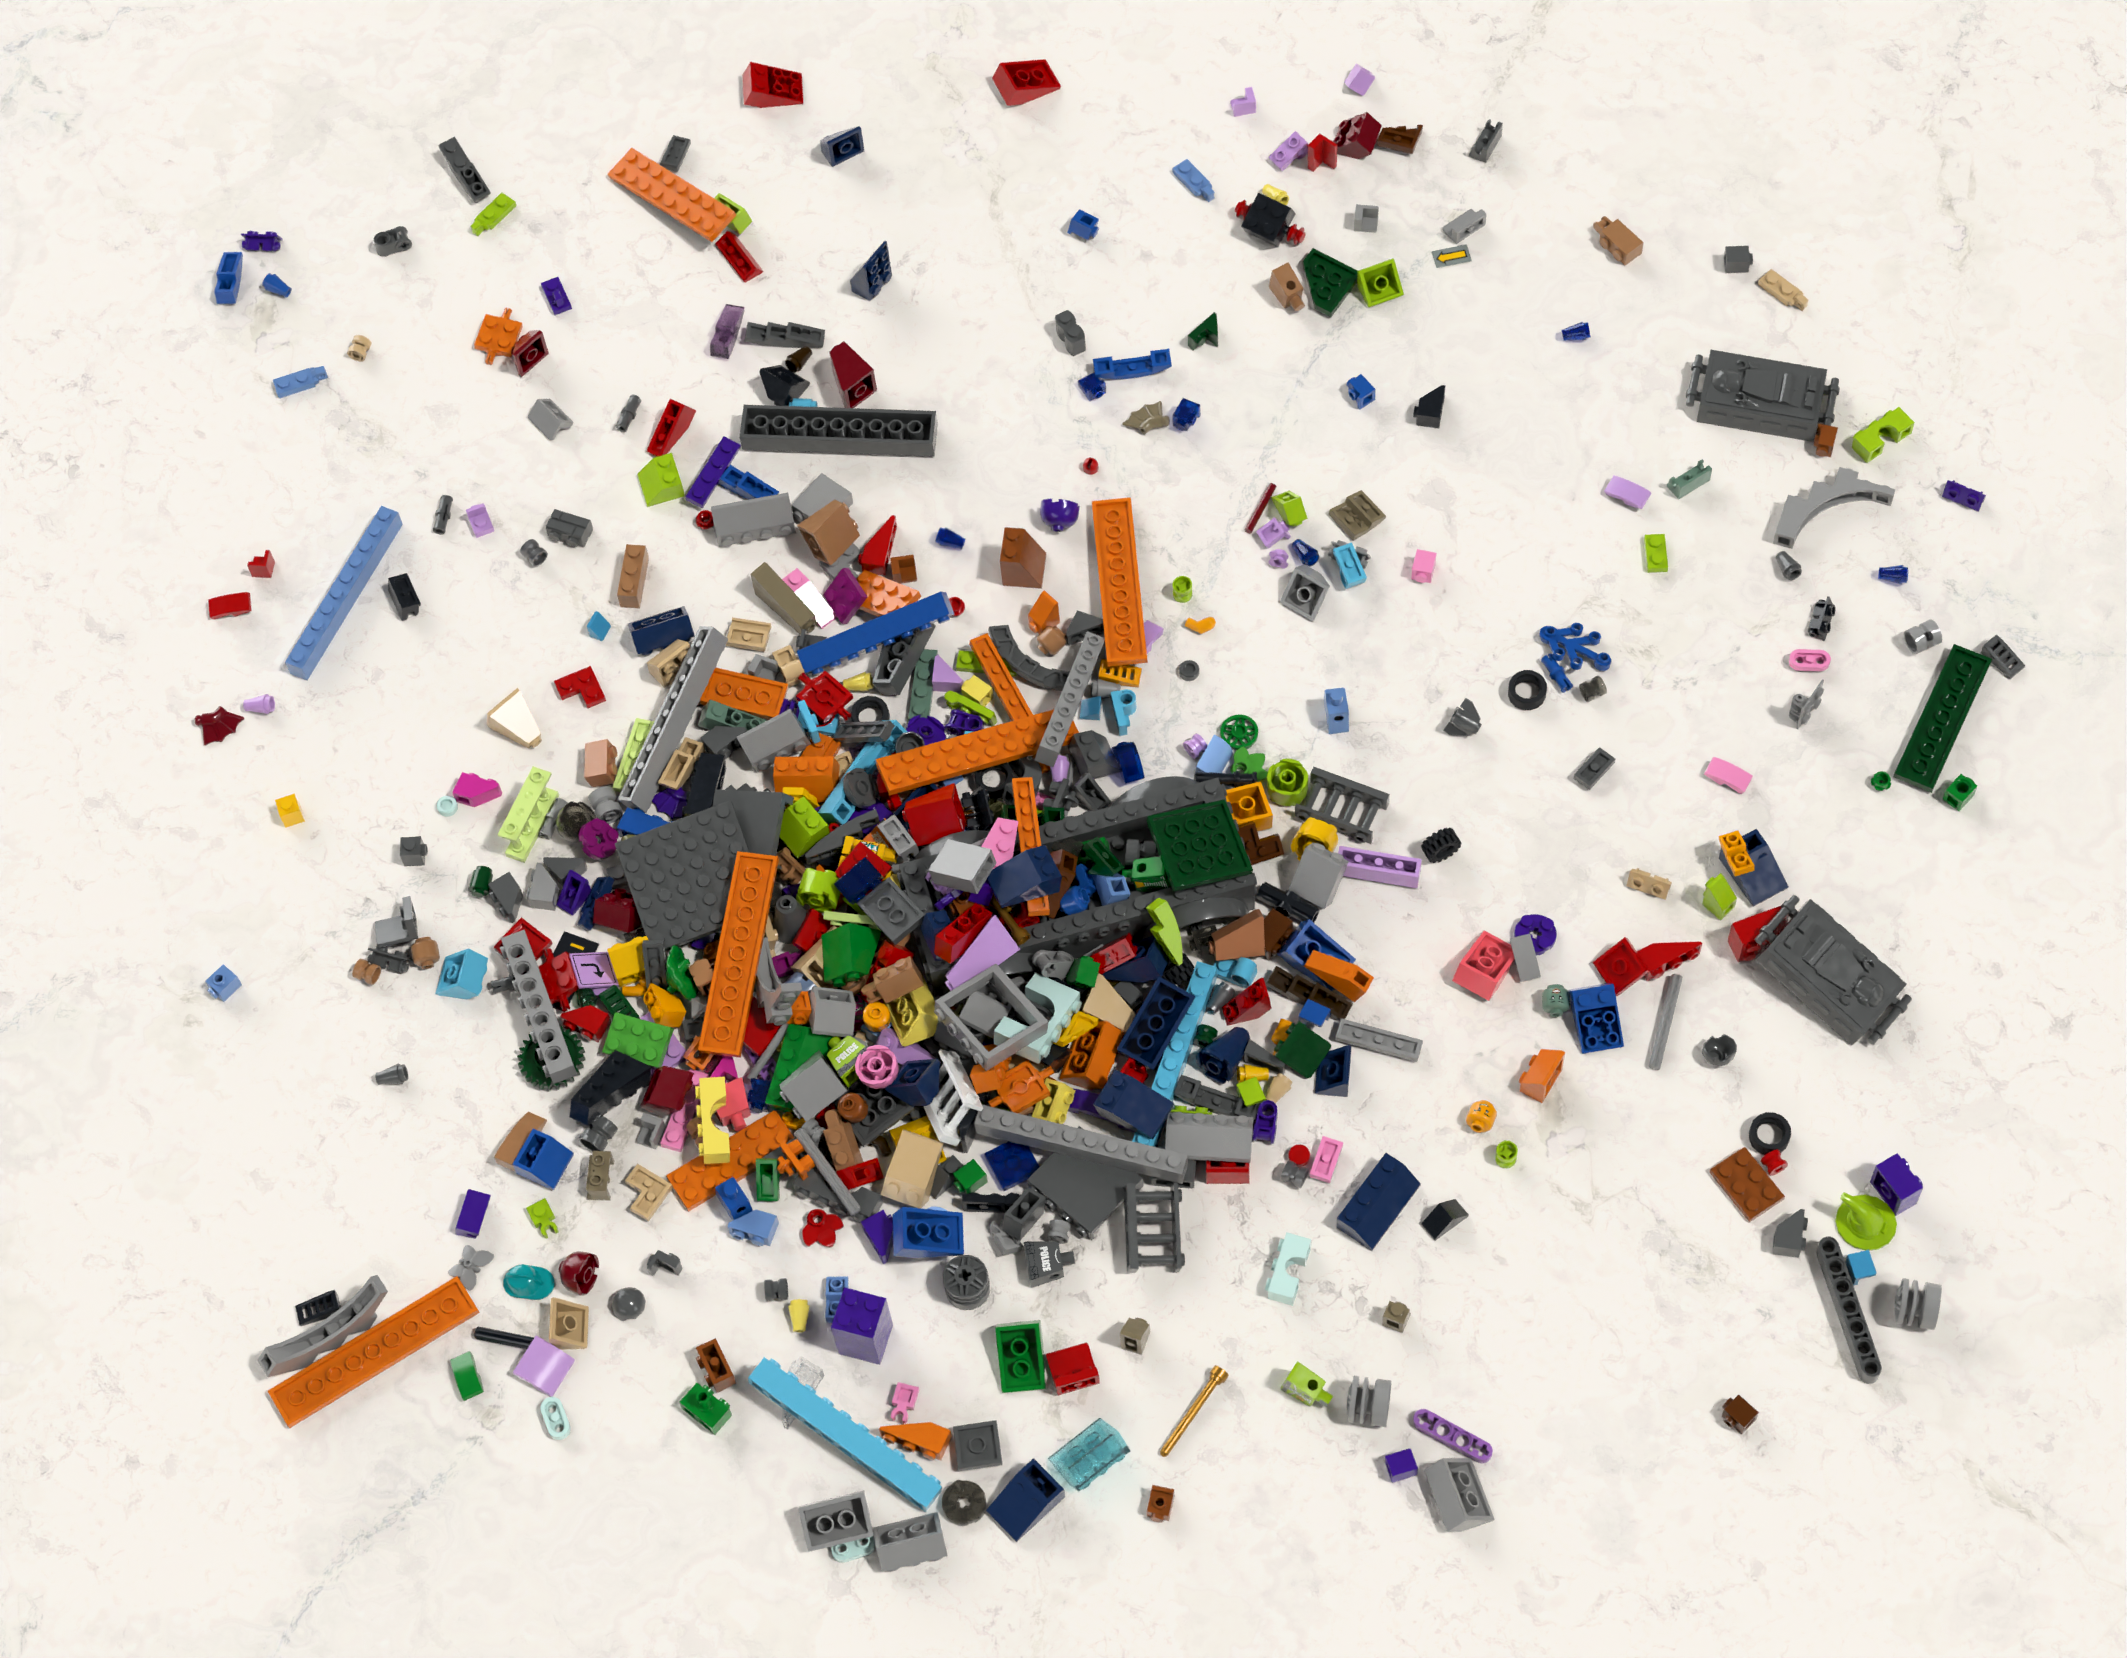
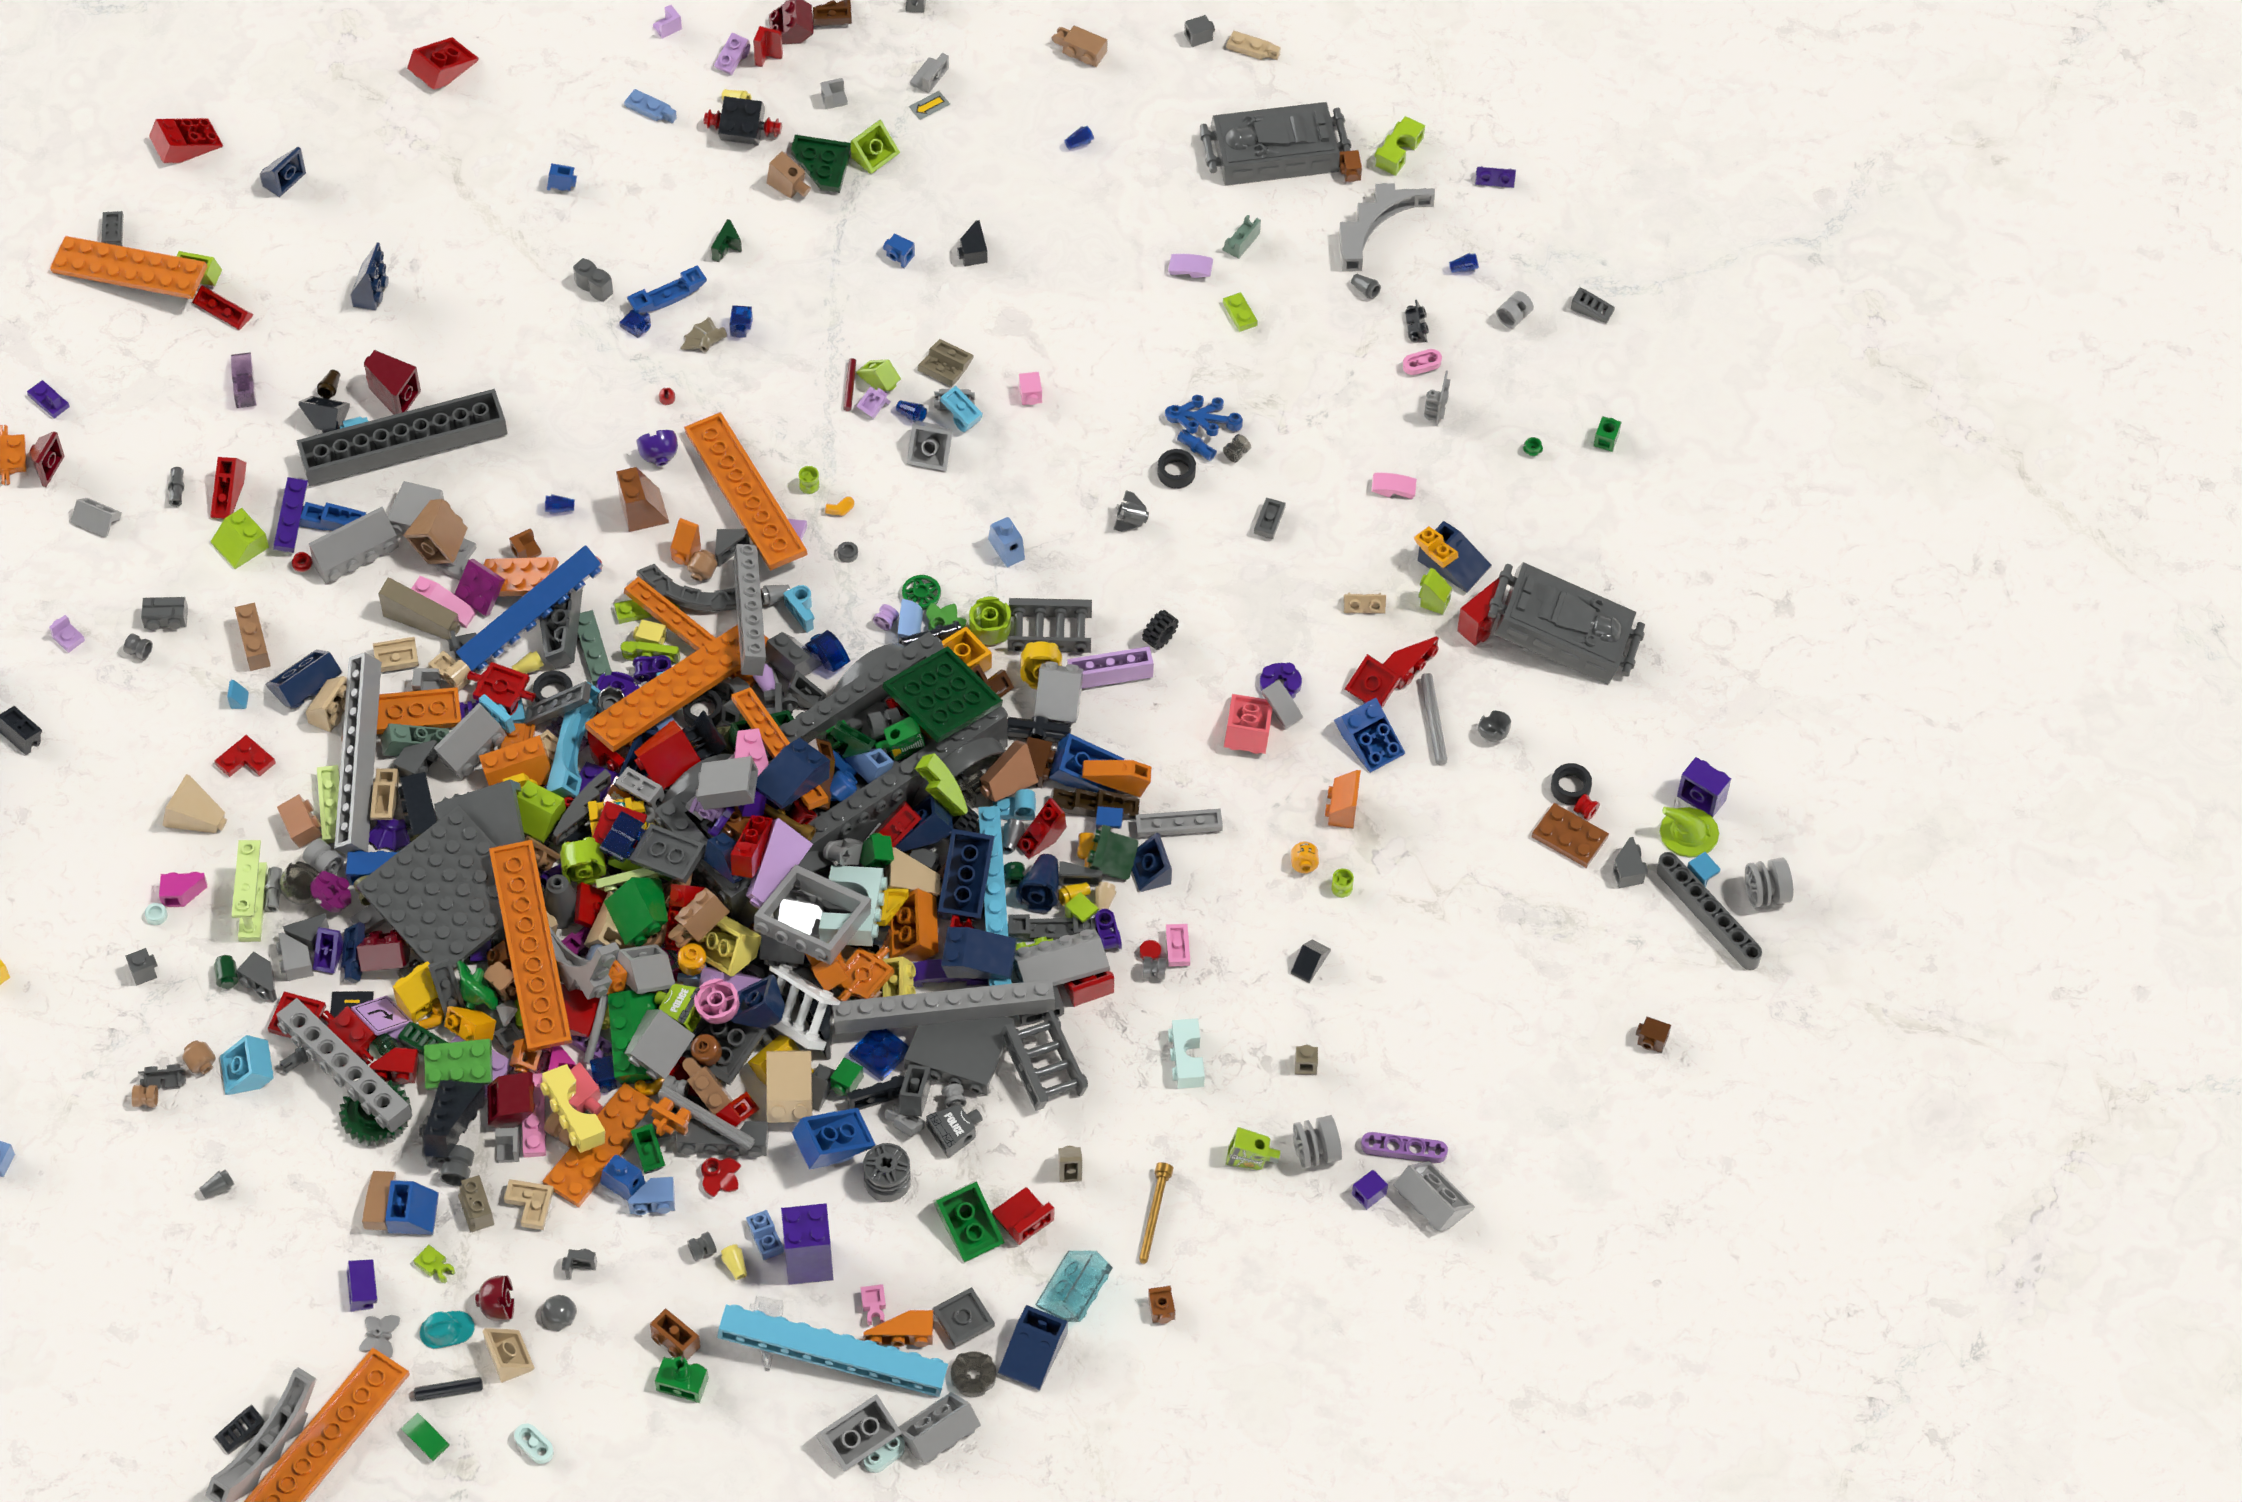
camera: 30 degrees left, 5 degrees down
(398, 928) = (162, 1043): bracket -> none
(443, 514) = (24, 640): dark grey pin -> none
(544, 1366) = (500, 1399): lavender slope -> none
(787, 336) = (301, 368): dark grey slope -> none
(860, 788) = (578, 757): dark grey tile -> none
(878, 550) = (491, 535): red slope -> none
(880, 1233) = (780, 1159): dark purple slope -> none
(883, 1145) = (746, 1080): dark brown arm -> none
(944, 677) = (613, 631): lavender slope -> none
(1091, 708) = (771, 615): dark azure slope -> none
(1119, 679) = (789, 568): light orange slope -> none
(1278, 558) = (889, 424): lavender plate -> none
(1378, 1202) = (1243, 965): dark blue slope -> none
(1555, 1000) = (1327, 732): sand green head -> none
(1942, 718) = (1563, 375): dark green plate -> none

